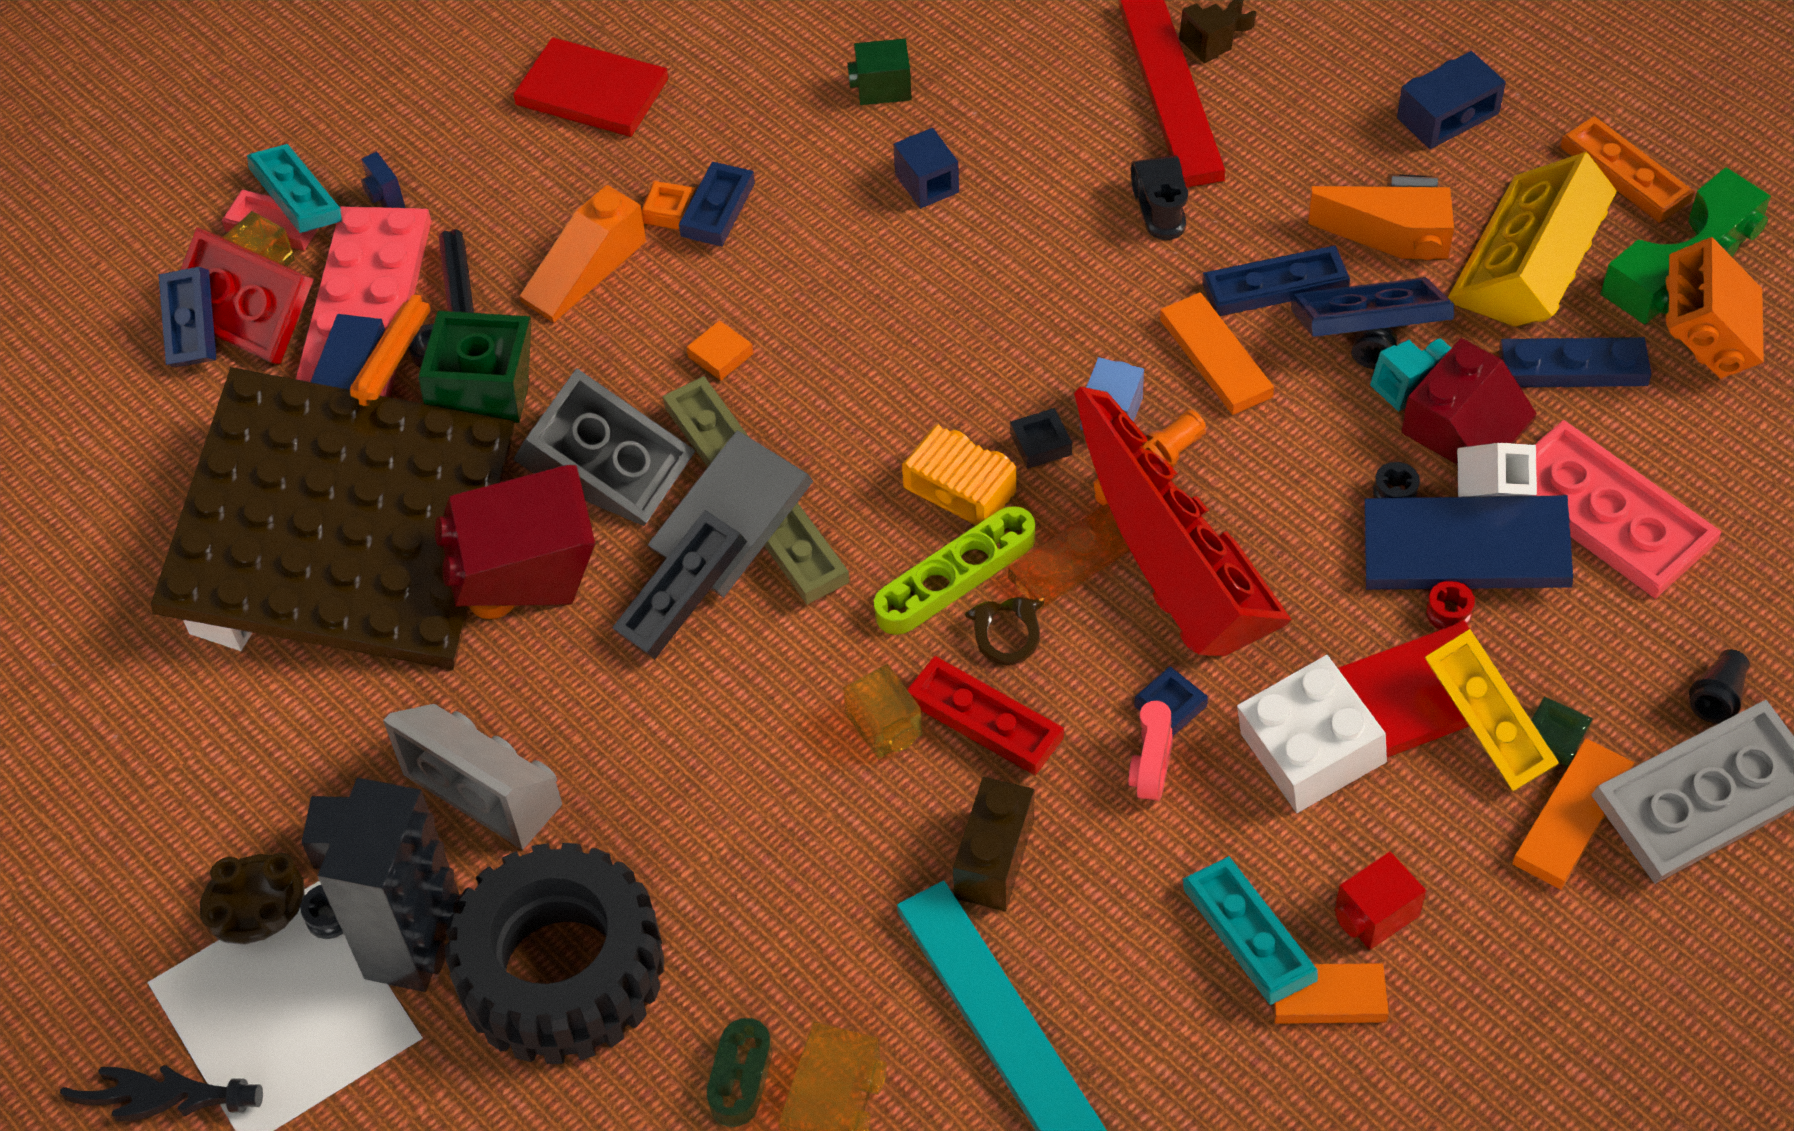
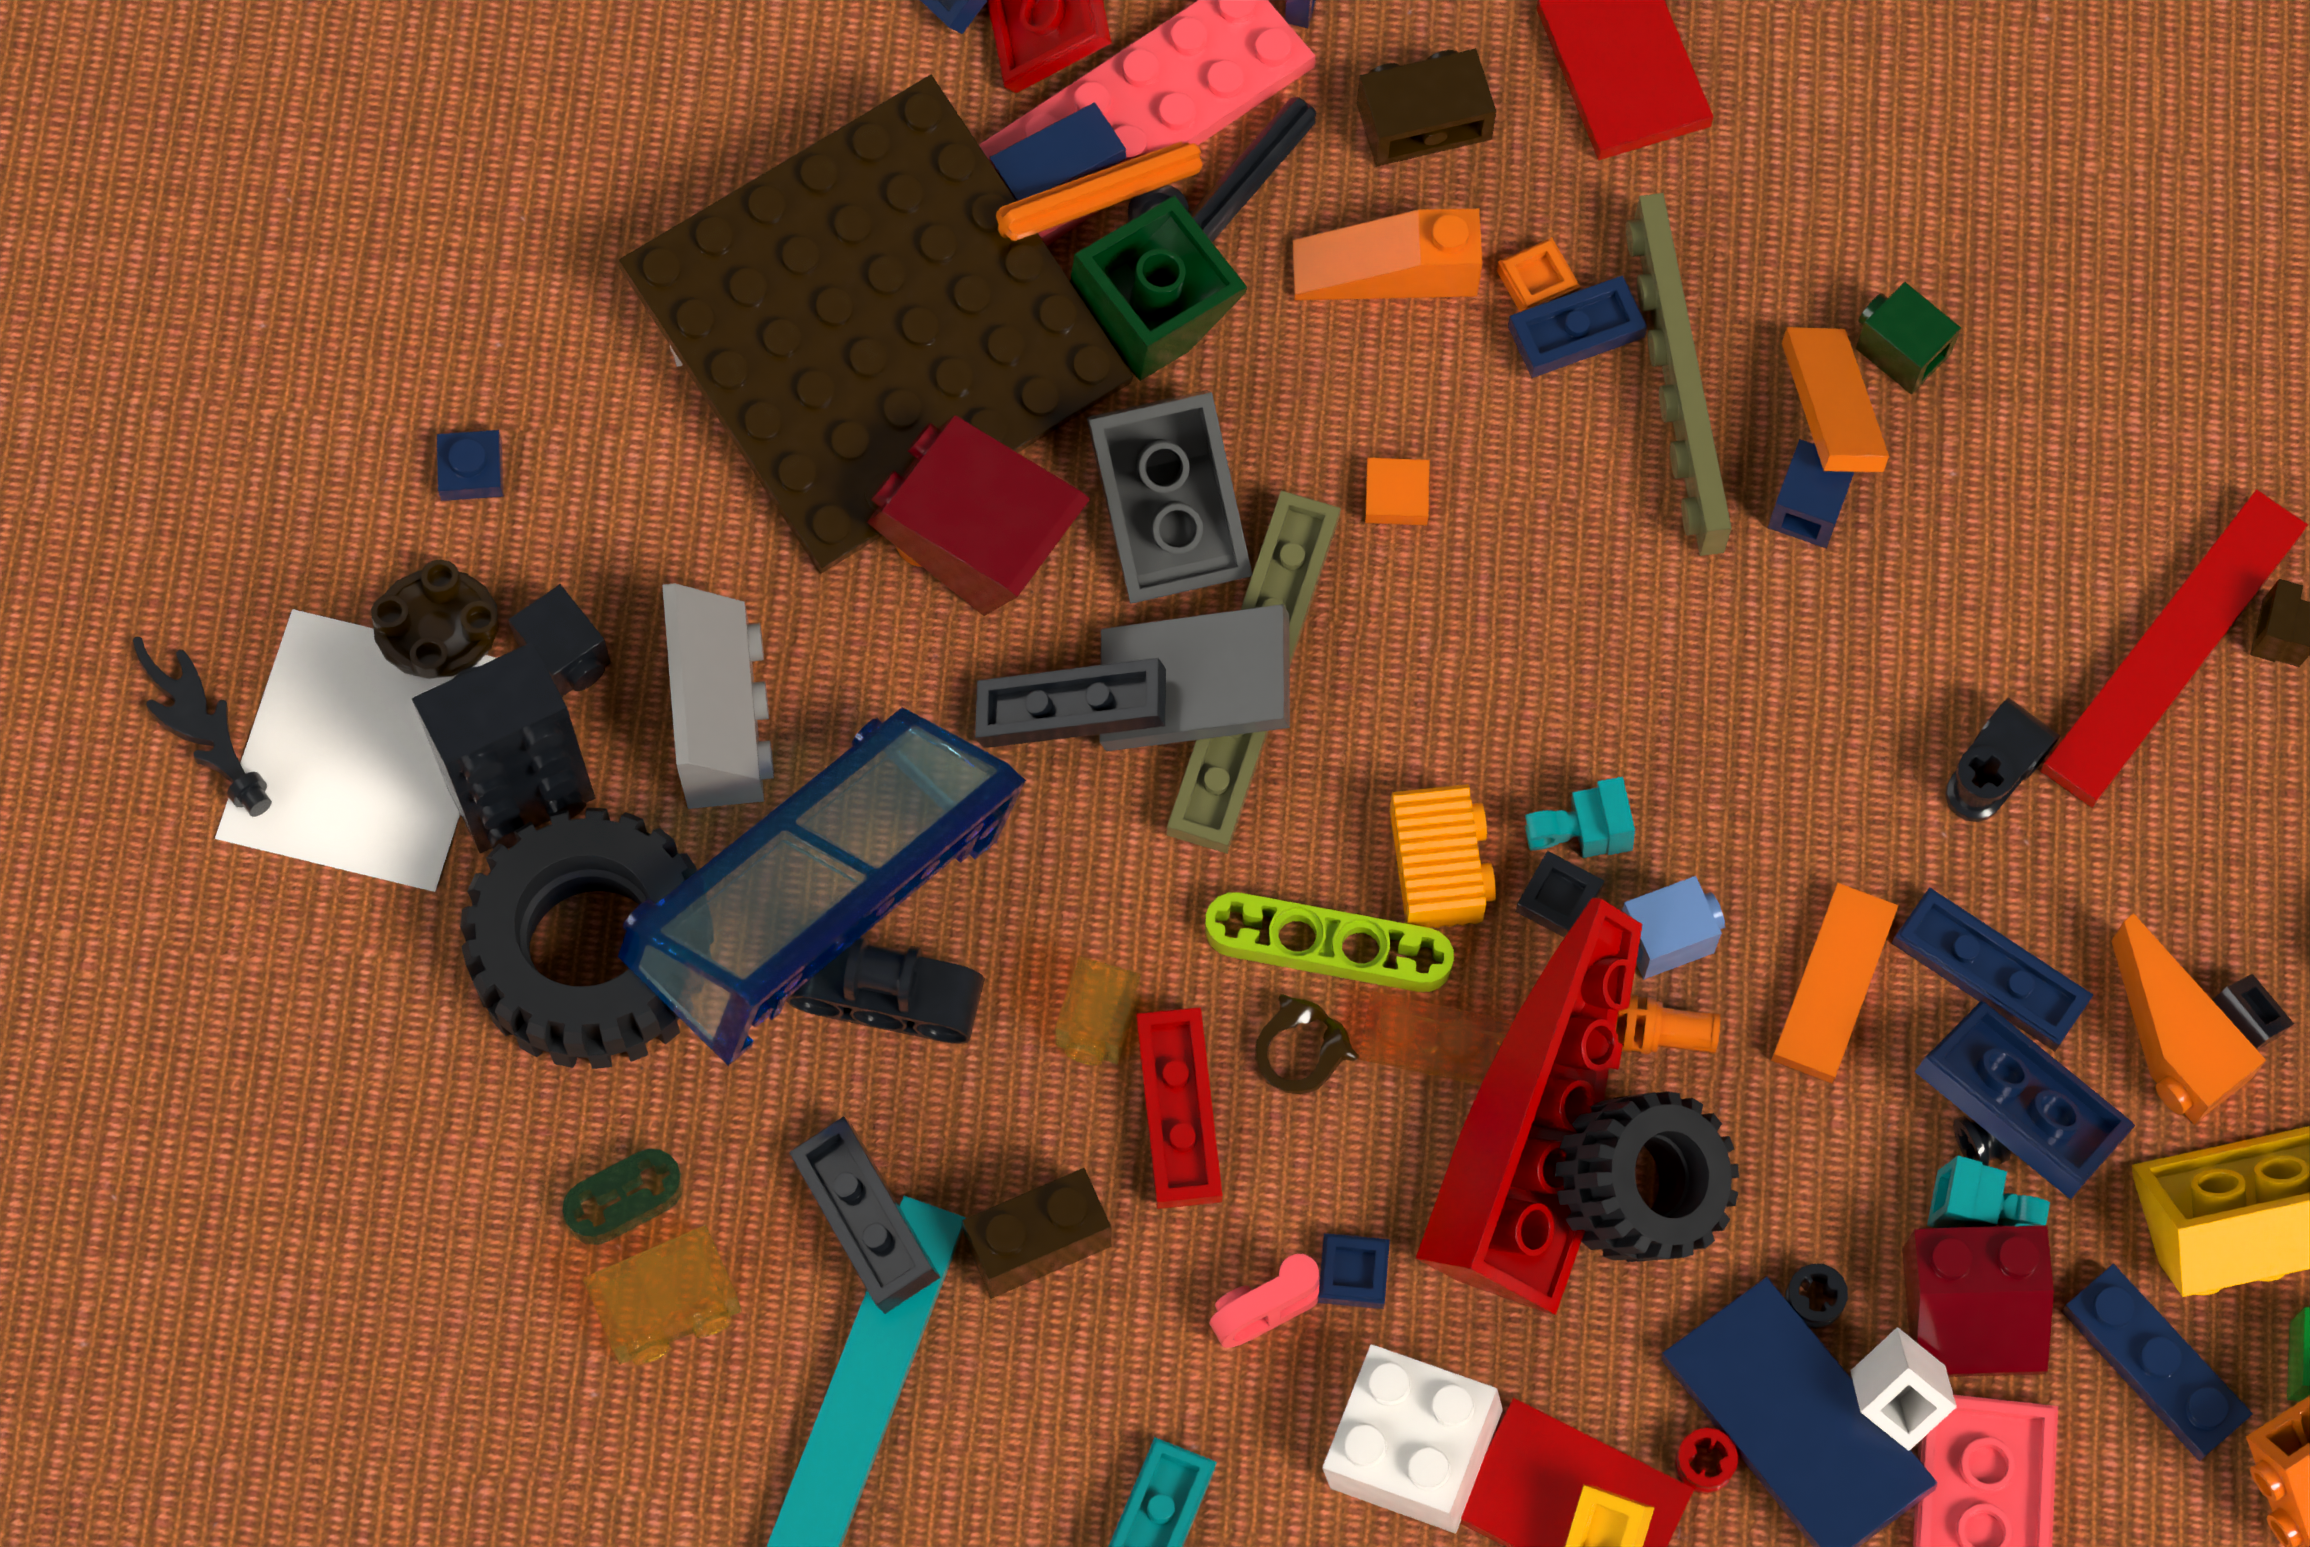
camera: 45 degrees right, 15 degrees up
(173, 805) = (470, 465): none -> dark blue plate
(516, 180) = (1425, 106): none -> dark brown brick
(657, 782) = (817, 875): none -> windscreen
(753, 814) = (895, 992): none -> black piece
(798, 177) = (1683, 394): none -> olive plate
(886, 118) = (1835, 400): none -> orange tile
(891, 930) = (864, 1215): none -> black plate
(1012, 391) = (1598, 819): none -> teal piece
(1259, 500) = (1690, 1167): none -> black tyre

